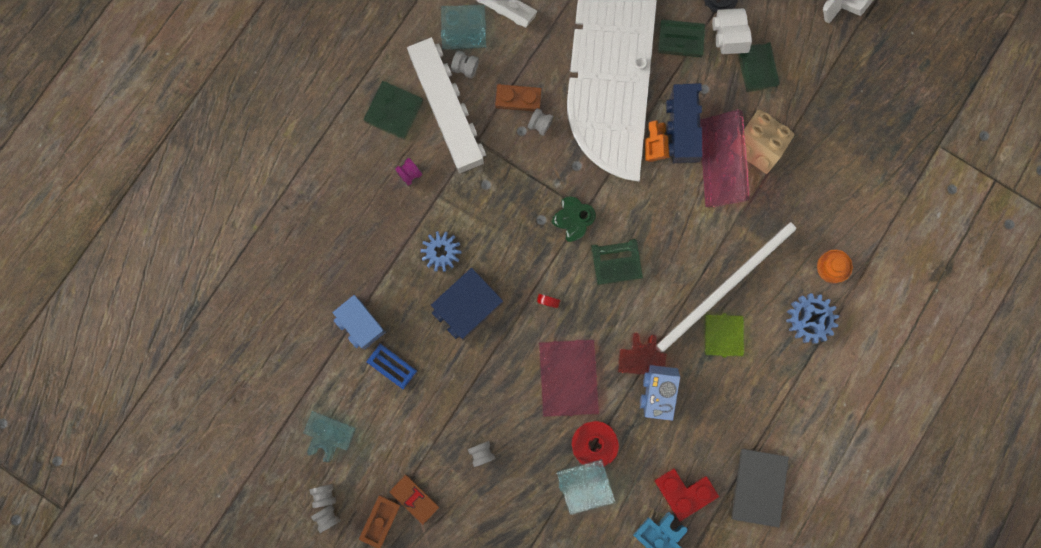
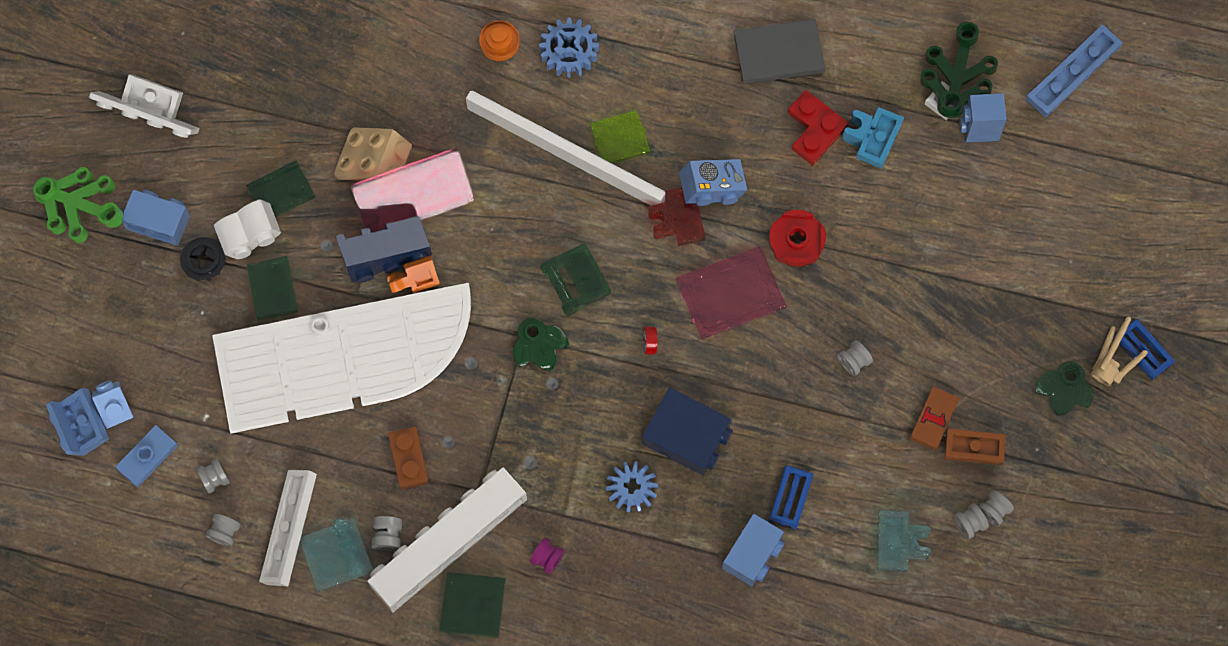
camera: 105 degrees left, 10 degrees down
(540, 121) = (432, 419): light grey wheel -> none
(585, 487) = (848, 231): clear light blue hinge -> none

